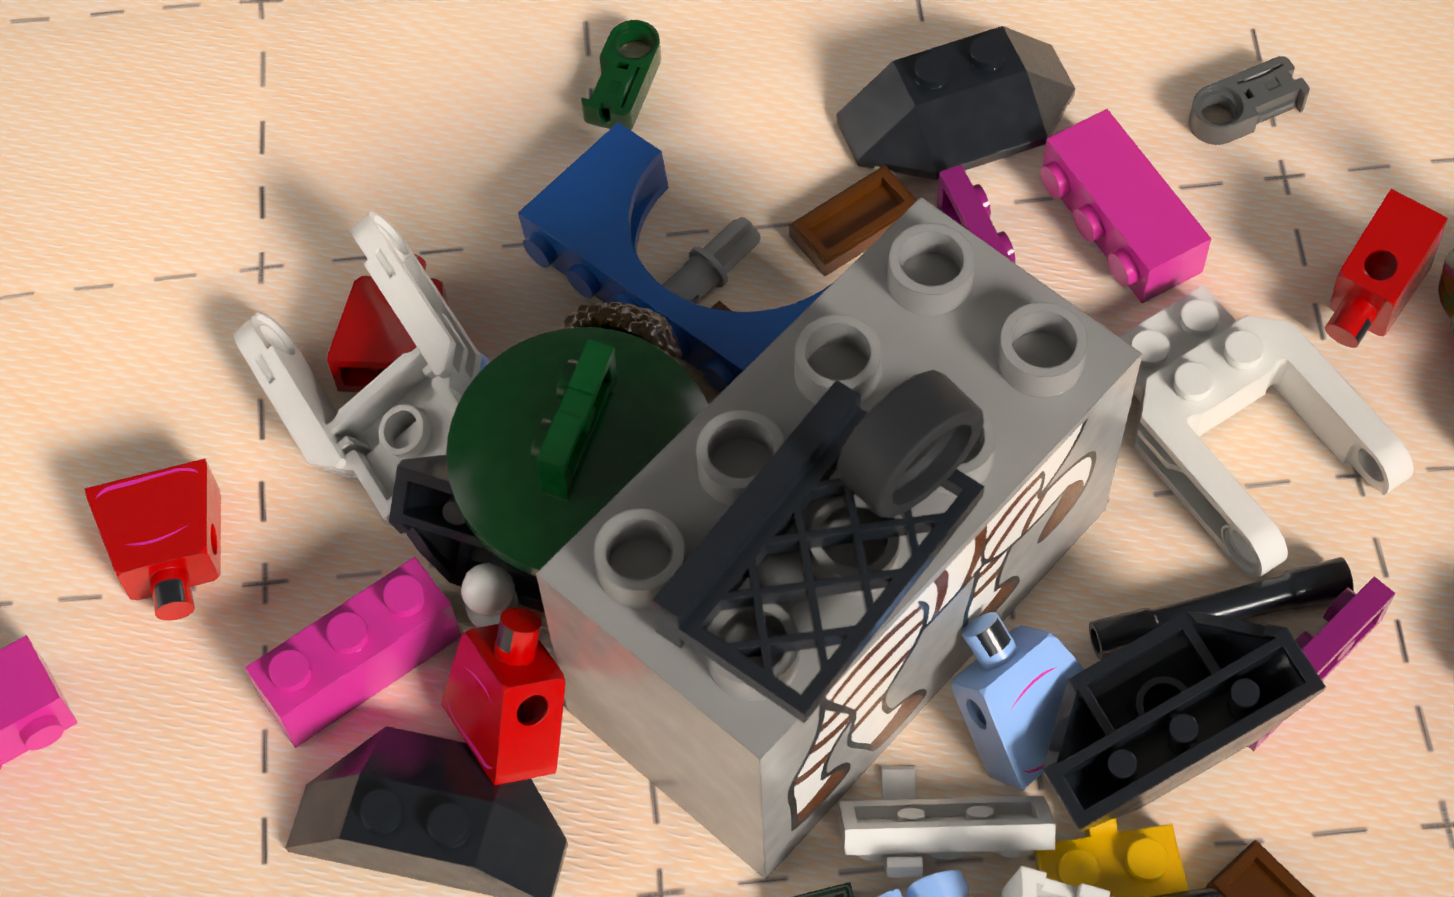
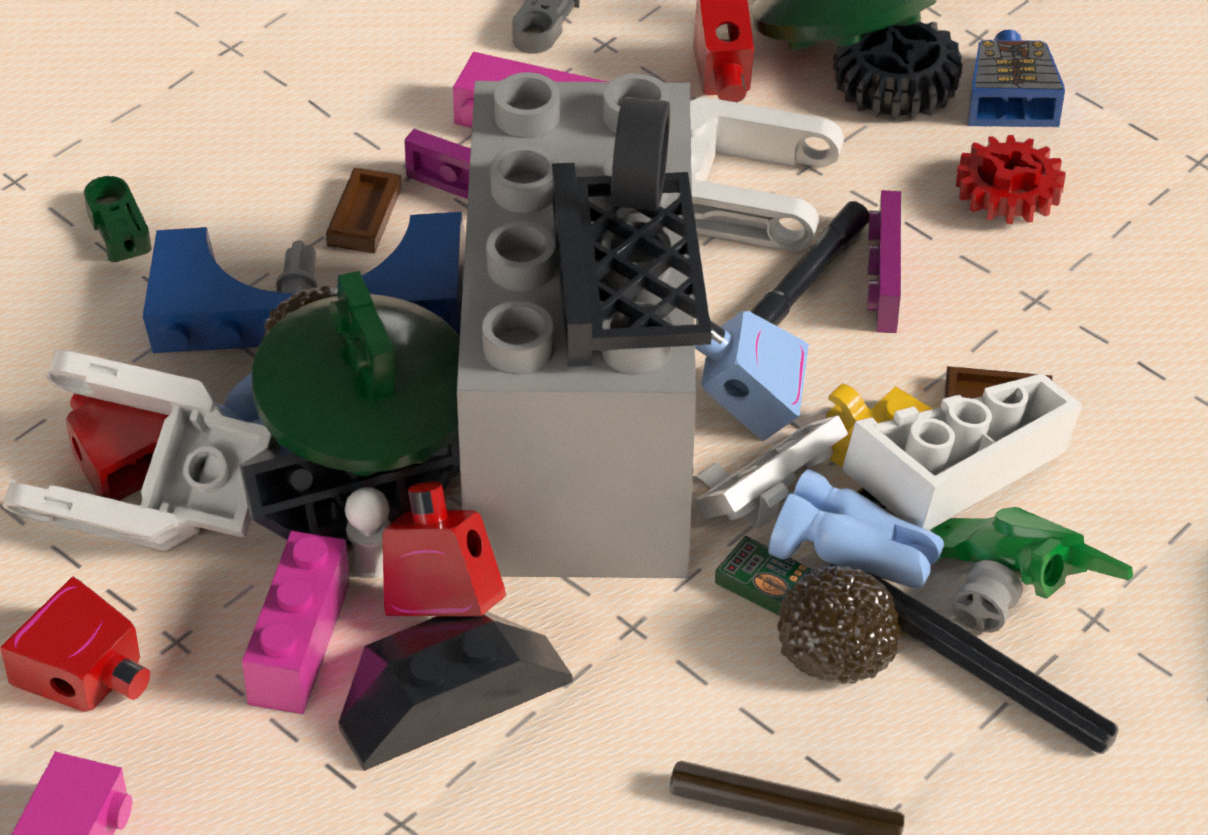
camera: 45 degrees left, 15 degrees down
(958, 105) = (364, 113): black wedge -> none
(1171, 711) = (849, 304): black wedge -> none

